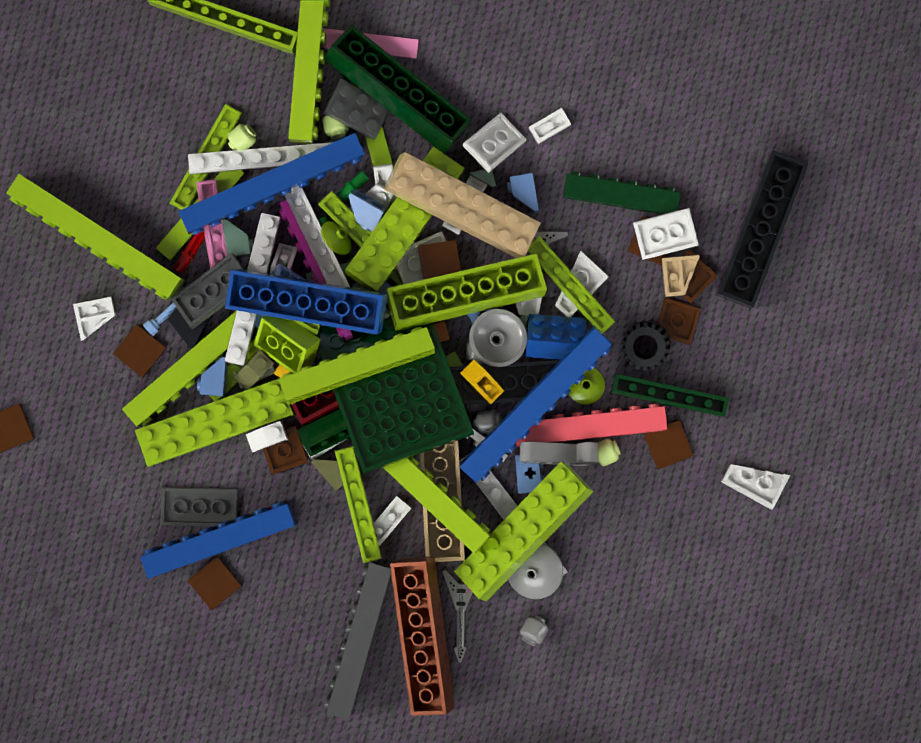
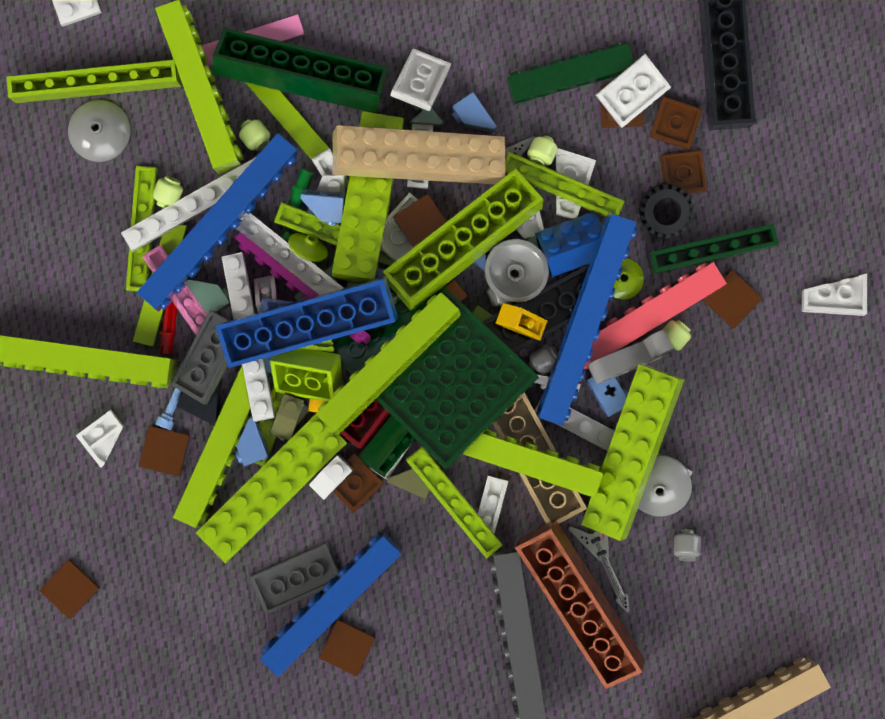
camera: 25 degrees left, 0 degrees up
(215, 71) = (108, 140): none -> light grey dish
(356, 109) = (268, 110): dark grey plate -> none
(549, 126) = (467, 39): white plate -> none
(568, 248) = (542, 150): none -> yellowish green head
(677, 274) = (664, 125): tan wing -> none

